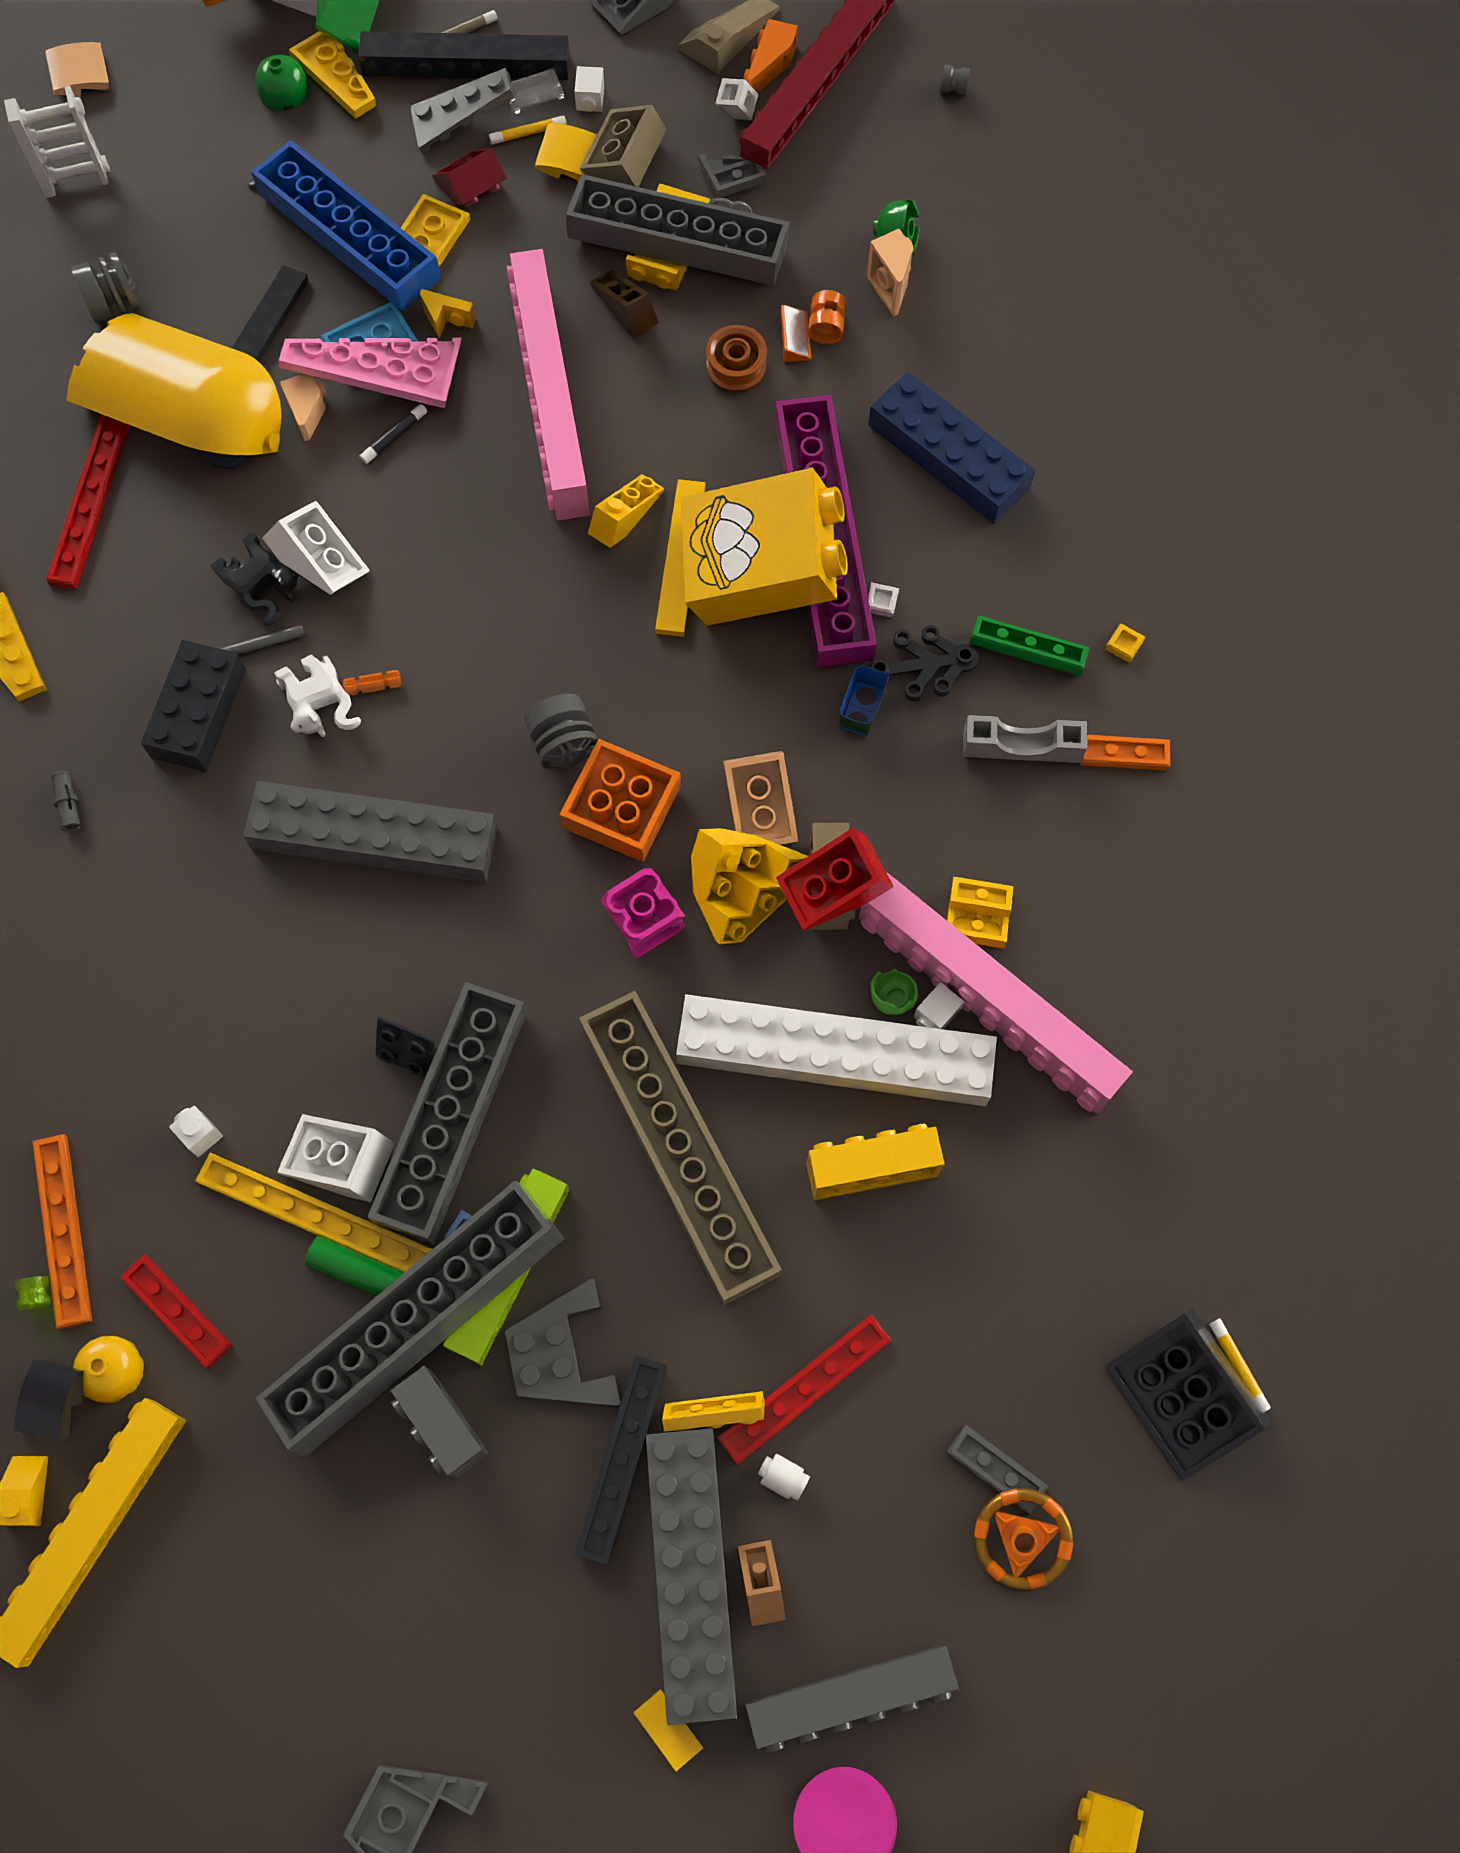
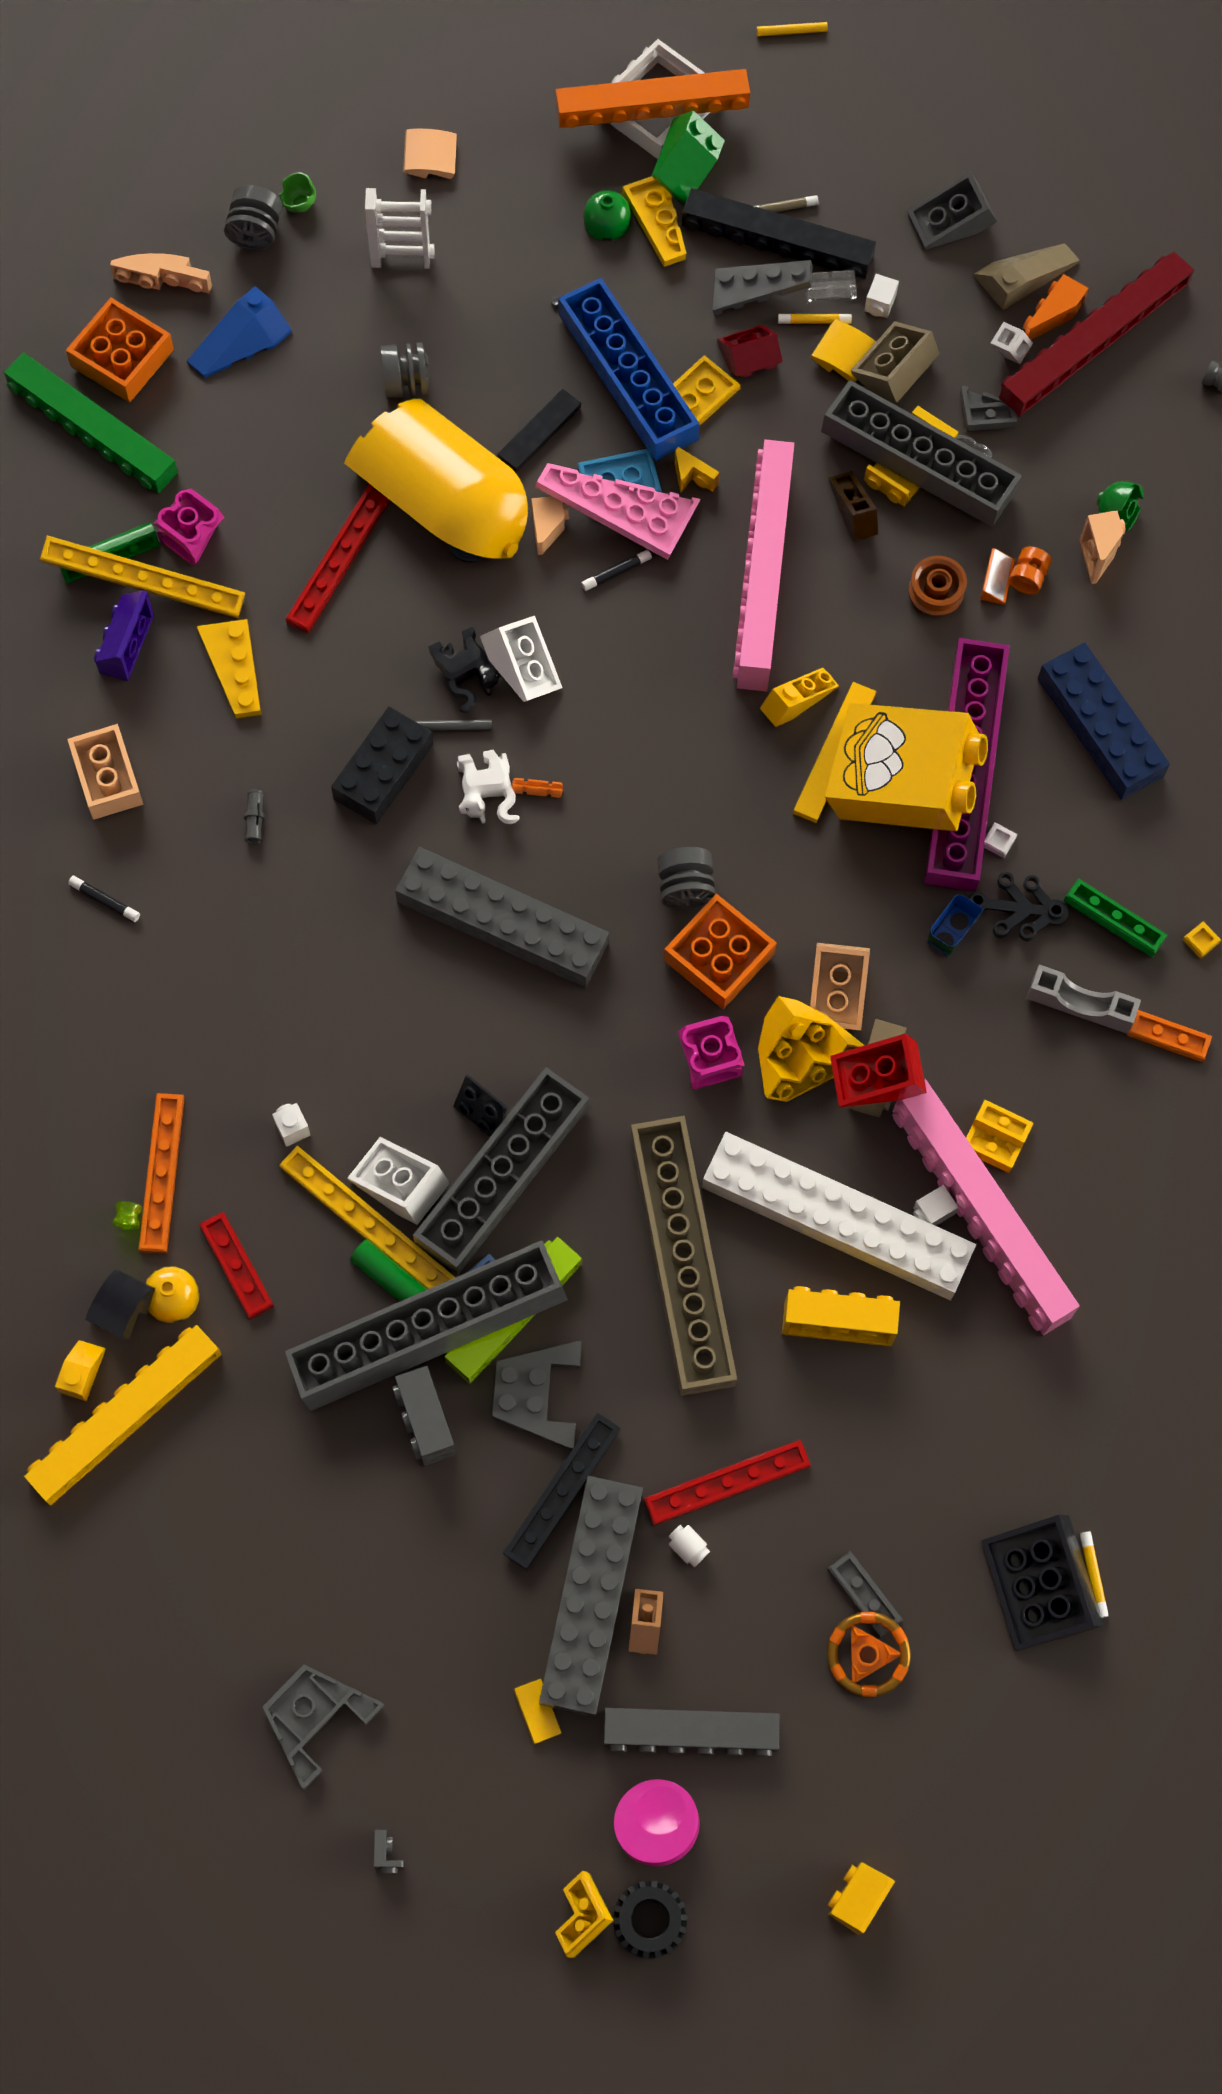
camera: 15 degrees right, 0 degrees up
(713, 1412) = (648, 1476): yellow plate -> none
(894, 992) = (902, 1182): bright green hair -> none

